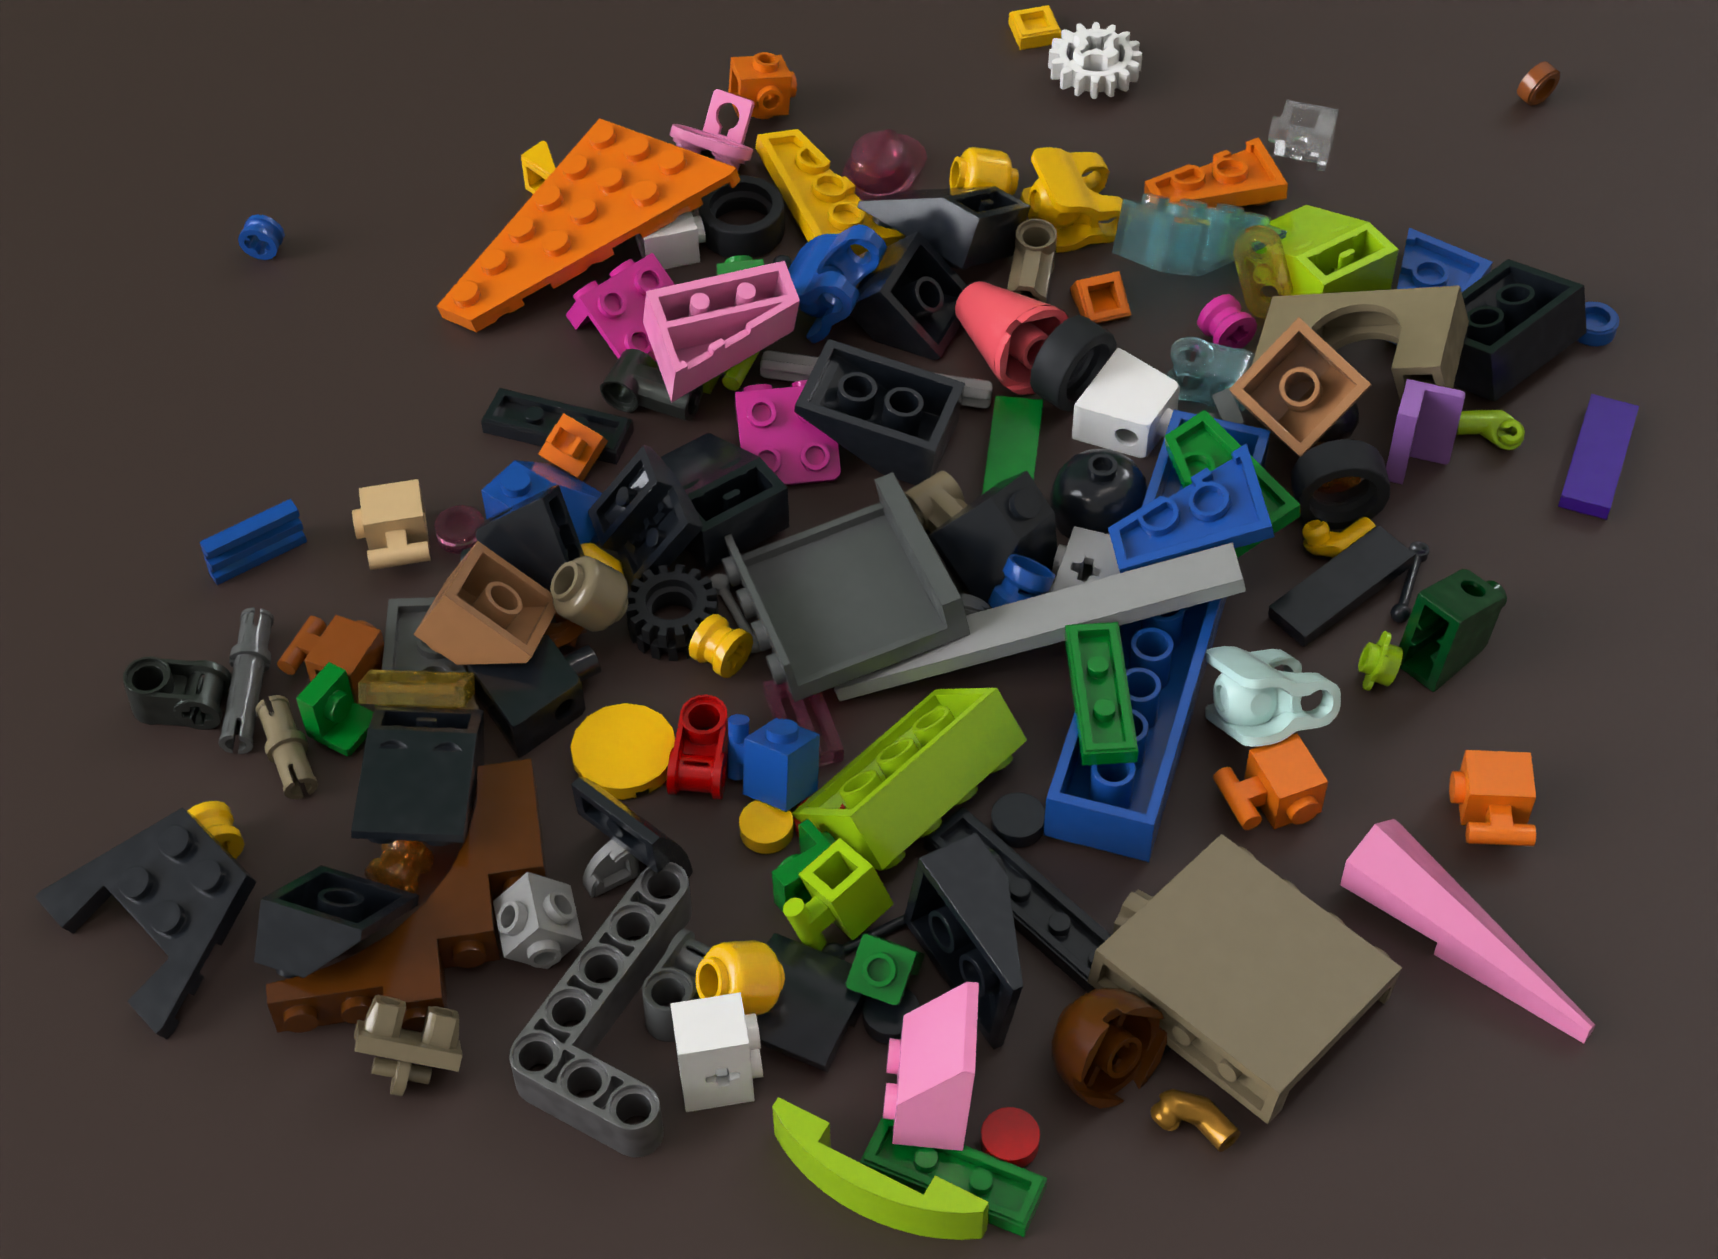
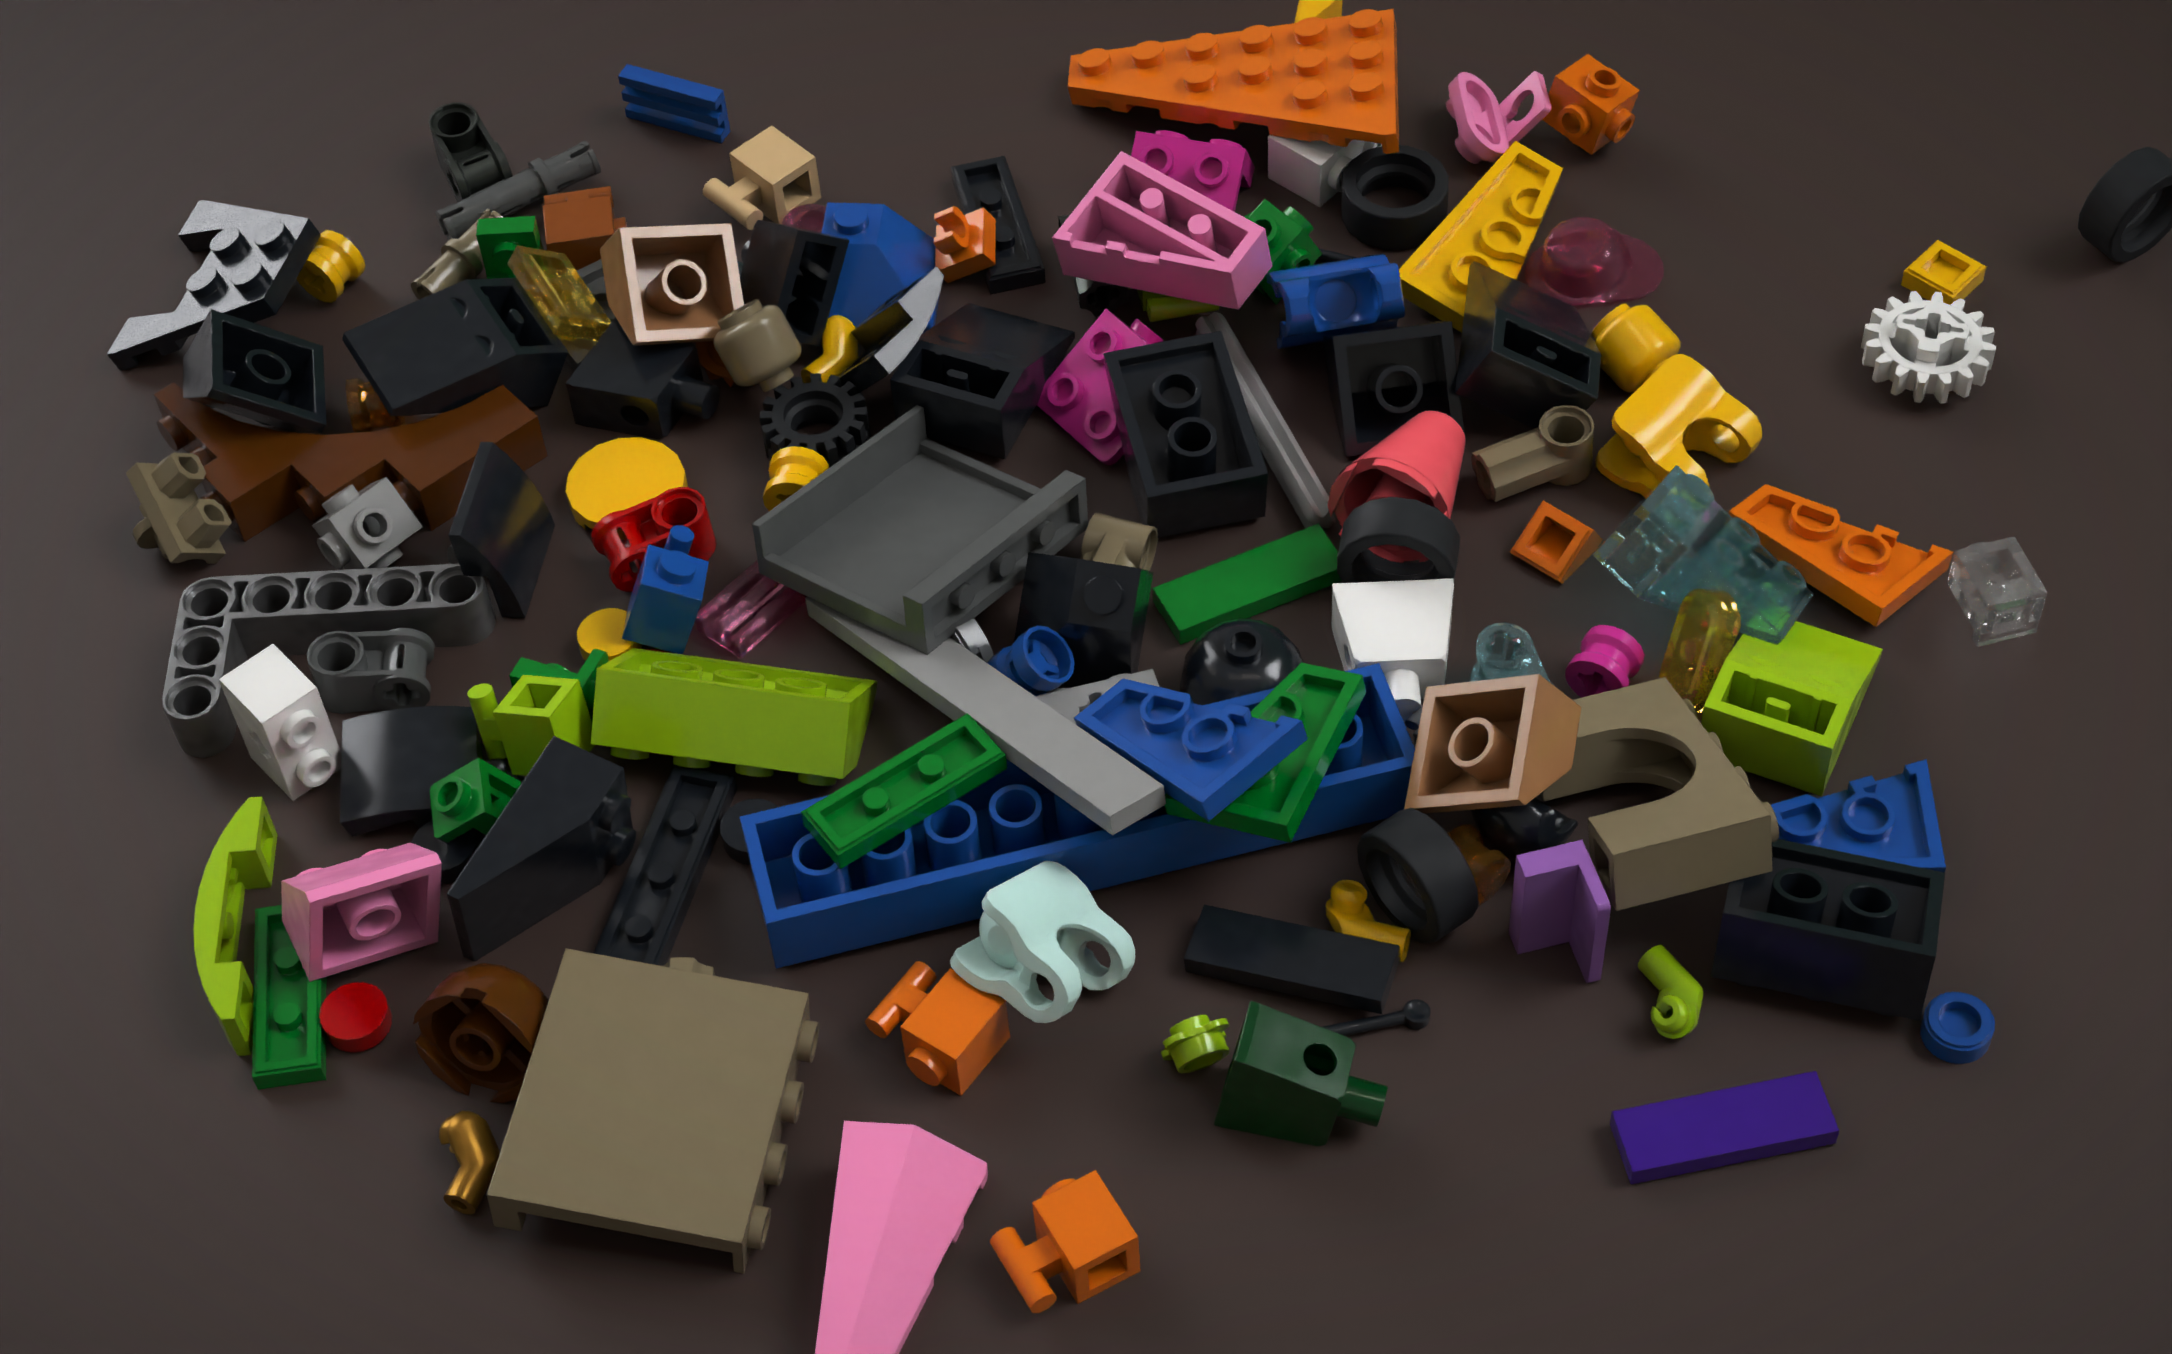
camera: 60 degrees right, 0 degrees up
(743, 968) = (367, 694): yellow head -> none

